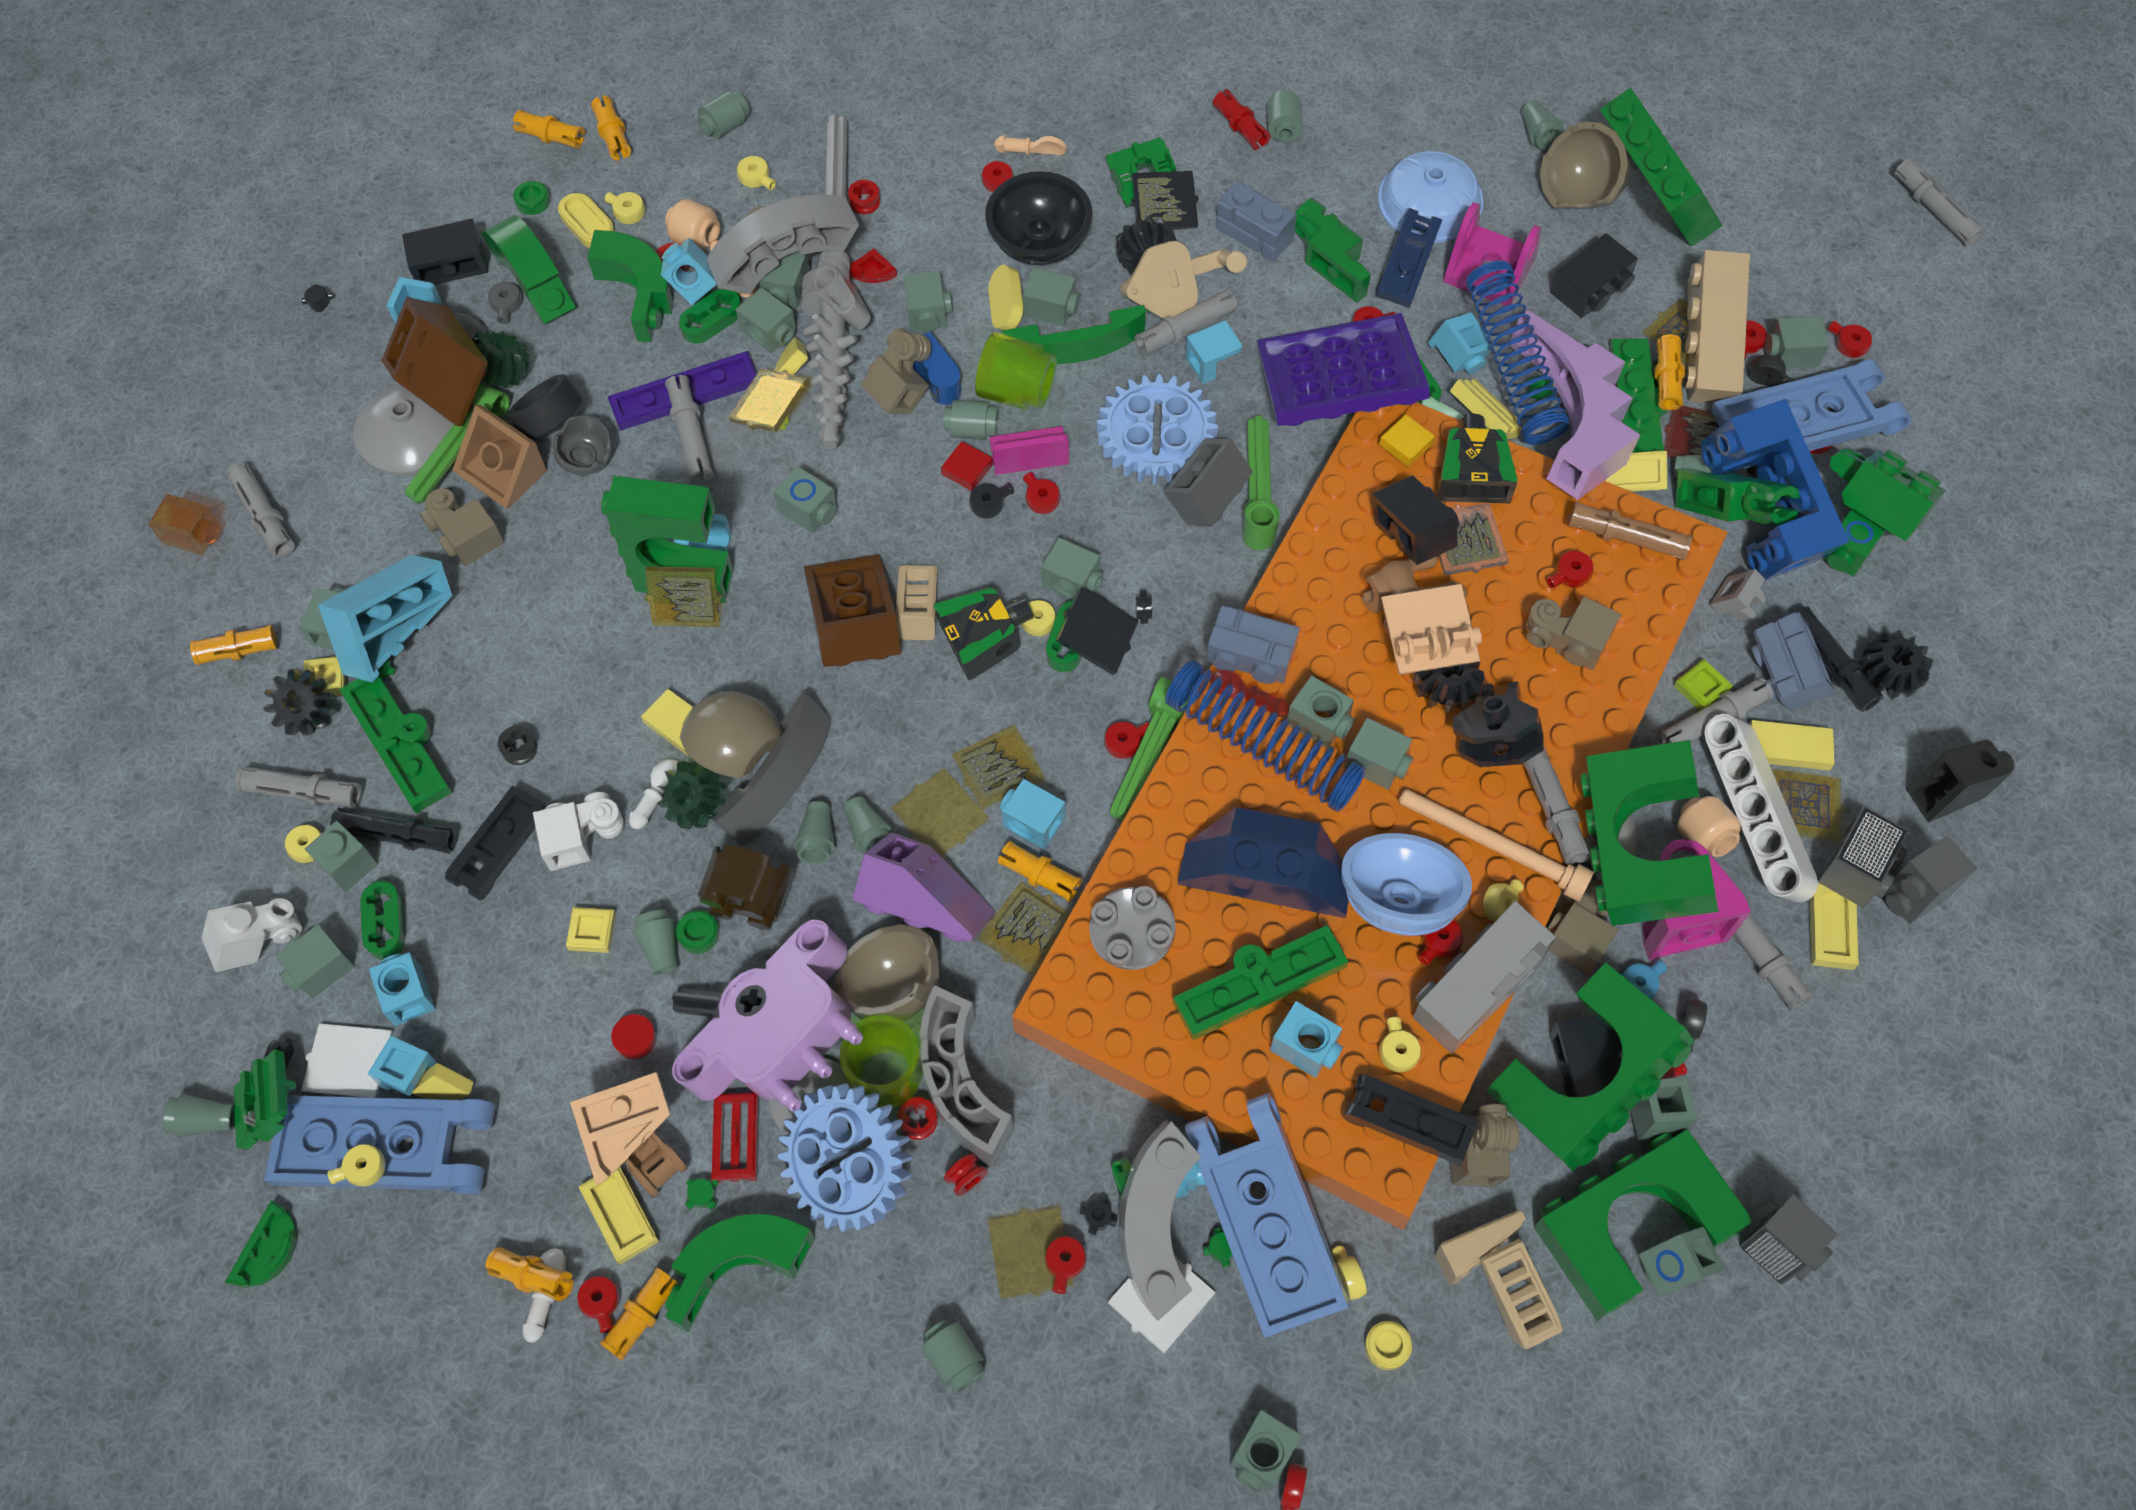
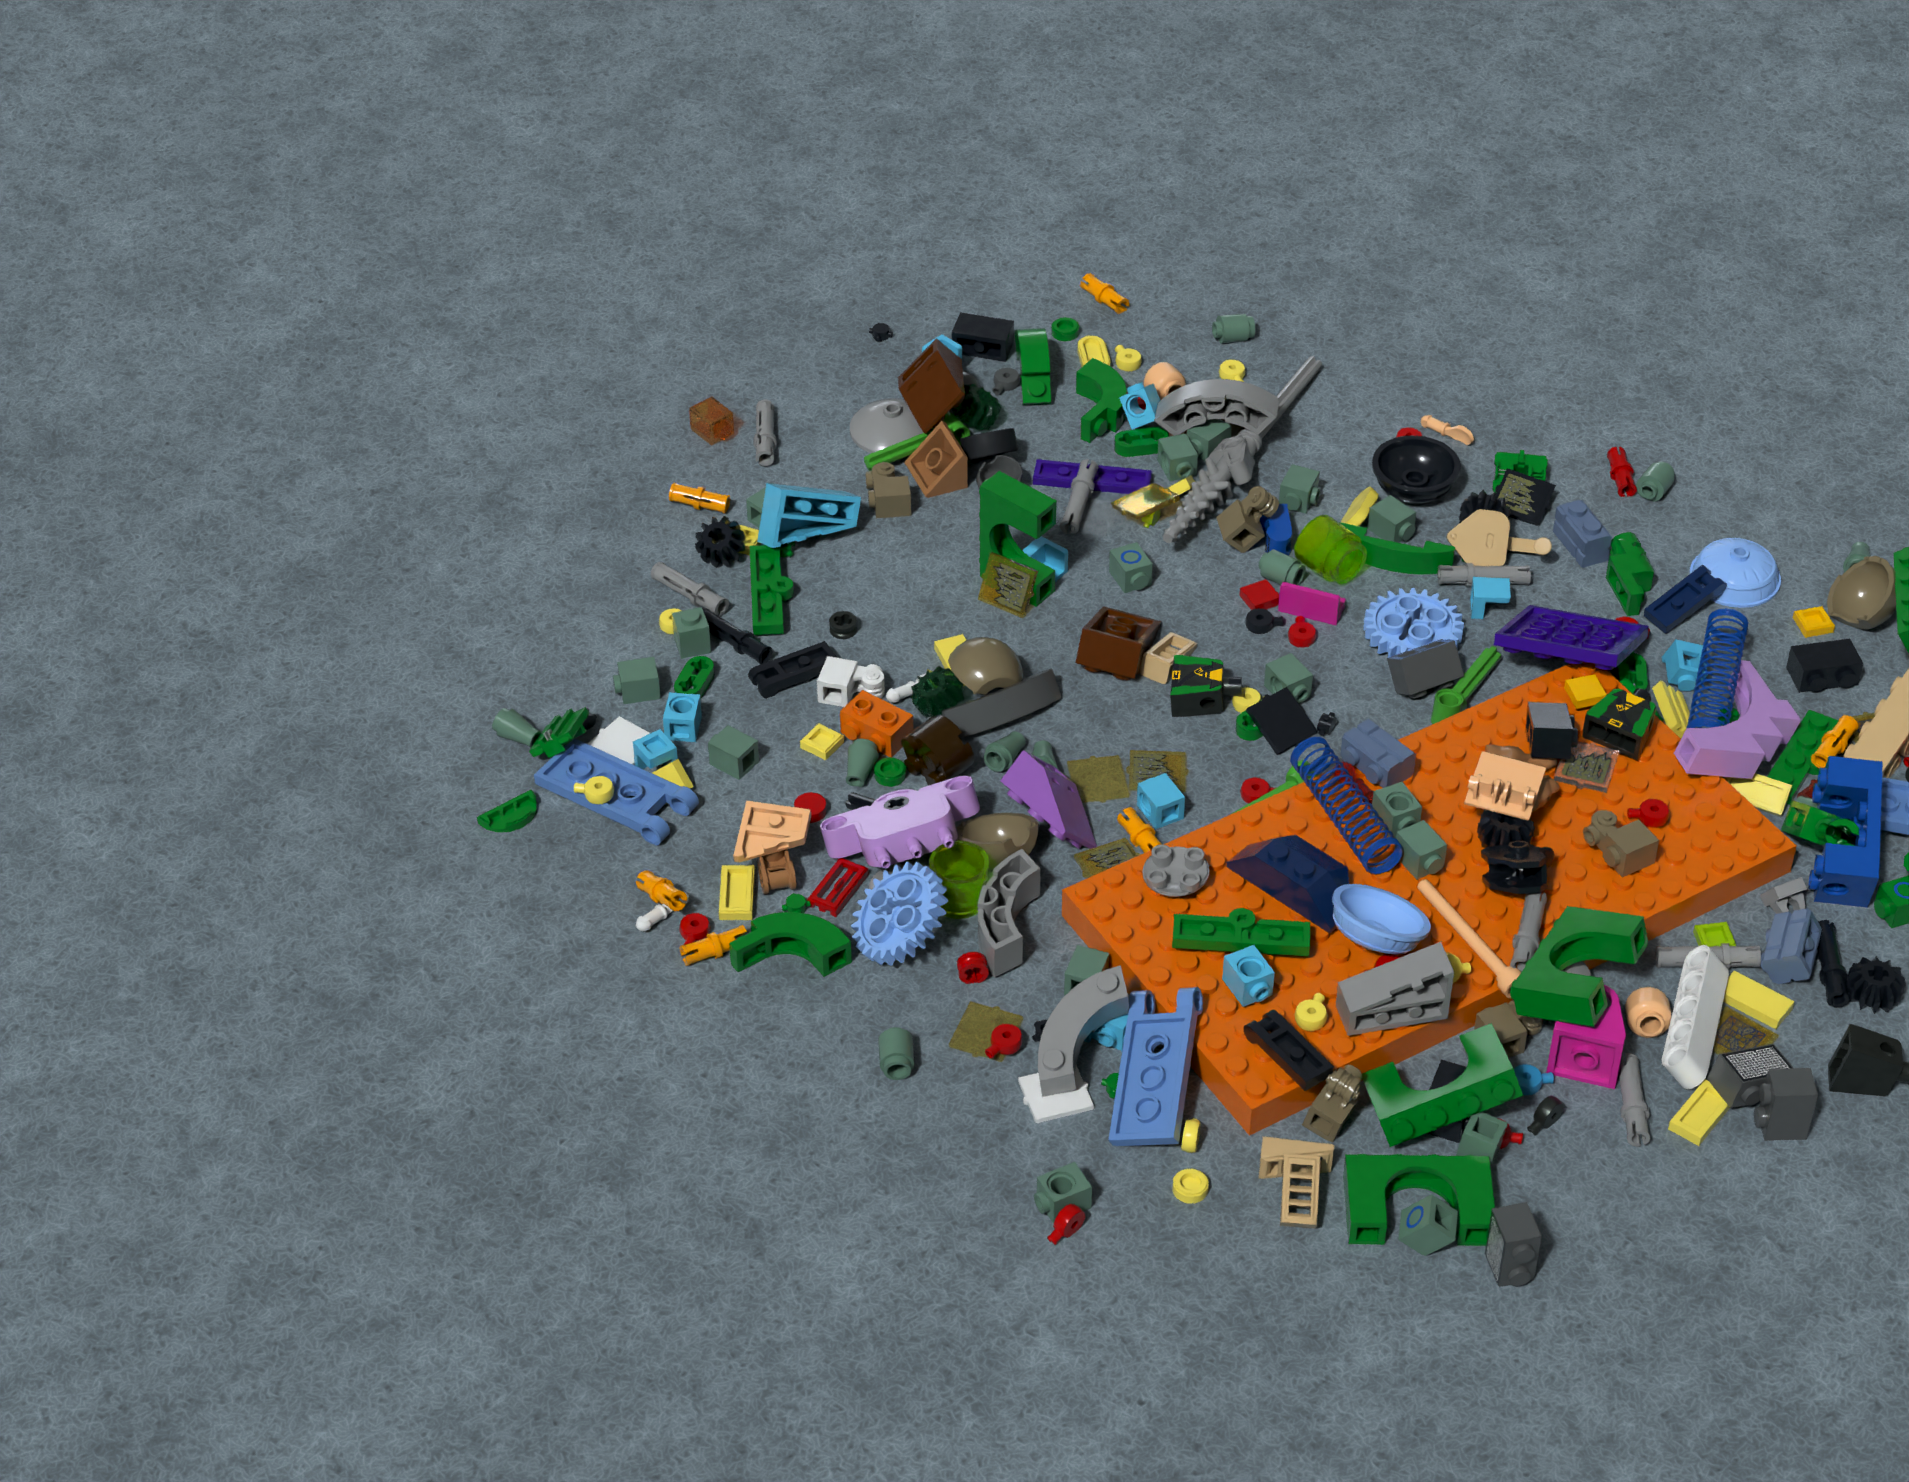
camera: 30 degrees right, 20 degrees down
(238, 931) = (604, 641): white brick -> none
(495, 1009) = (733, 752): none -> sand green brick
(610, 128) = (1148, 308): light orange pin -> none
(644, 875) = (877, 721): none -> orange brick
(856, 191) = (1301, 414): red bush -> none
(872, 266) = (1275, 456): red tile -> none
(930, 1114) = (960, 936): red bush -> none
(1100, 1109) = (1083, 965): none -> sand green brick
(1480, 245) = (1768, 631): dark pink hose -> none
(1544, 216) = (1813, 621): none -> yellow tile
(1629, 530) = (1702, 798): medium nougat pin -> none

